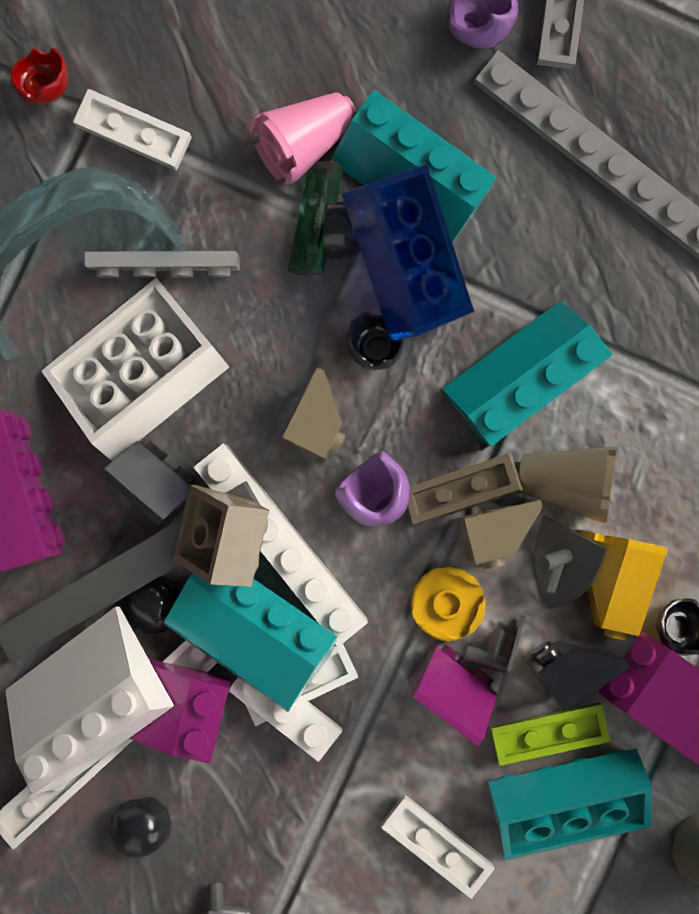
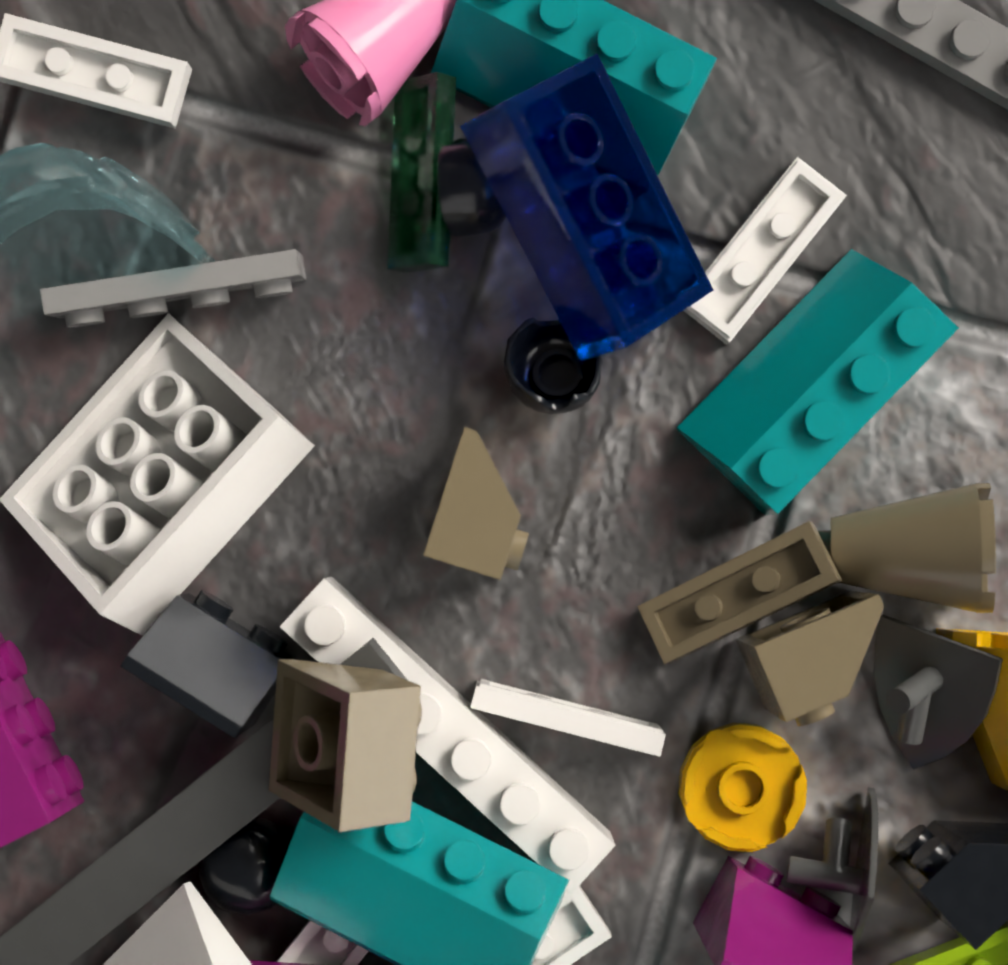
camera: 10 degrees left, 0 degrees up
(352, 546) = (568, 717): none -> white tile
(375, 491) = (592, 619): medium lavender piece -> none
(509, 293) = (765, 249): none -> white tile

